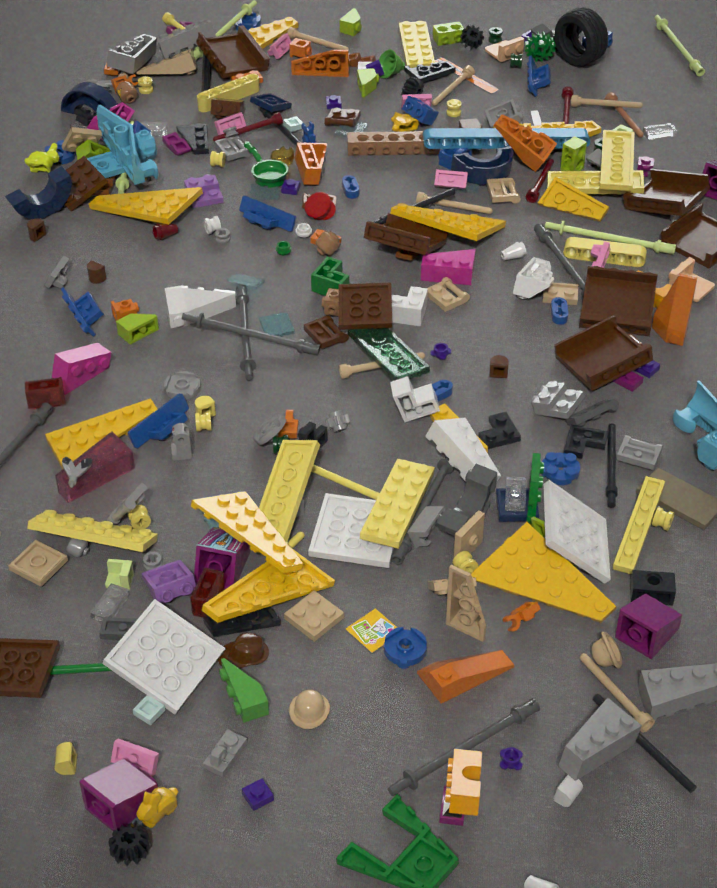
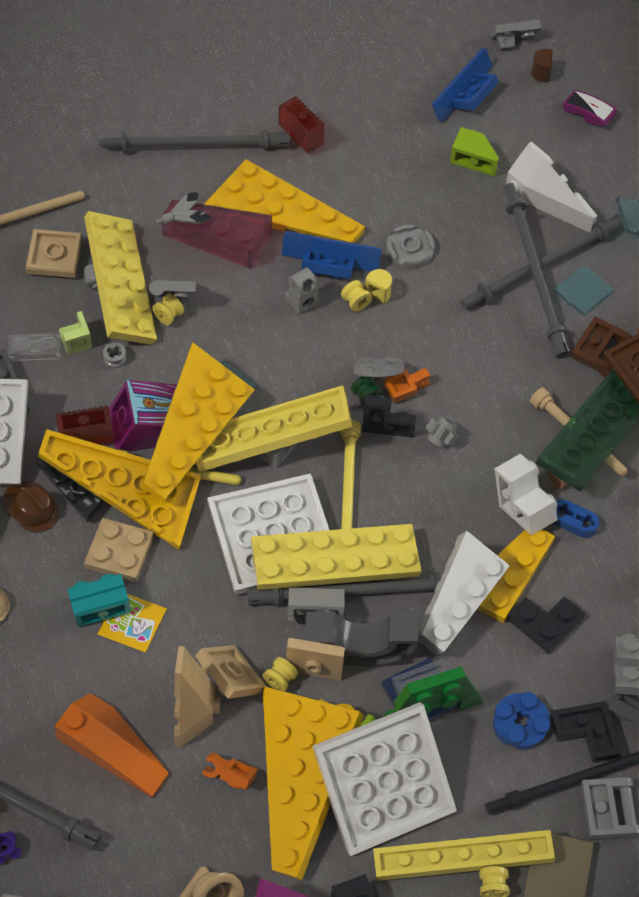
camera: 60 degrees right, 15 degrees up
(80, 365) = (369, 133): dark pink wedge -> none
(123, 308) = (495, 126): orange brick -> none
(142, 267) = (593, 108): none -> slope
(169, 581) = (87, 383): medium lavender plate -> none
(350, 636) = (99, 599): none -> teal brick
(405, 657) = (119, 679): blue plate -> none

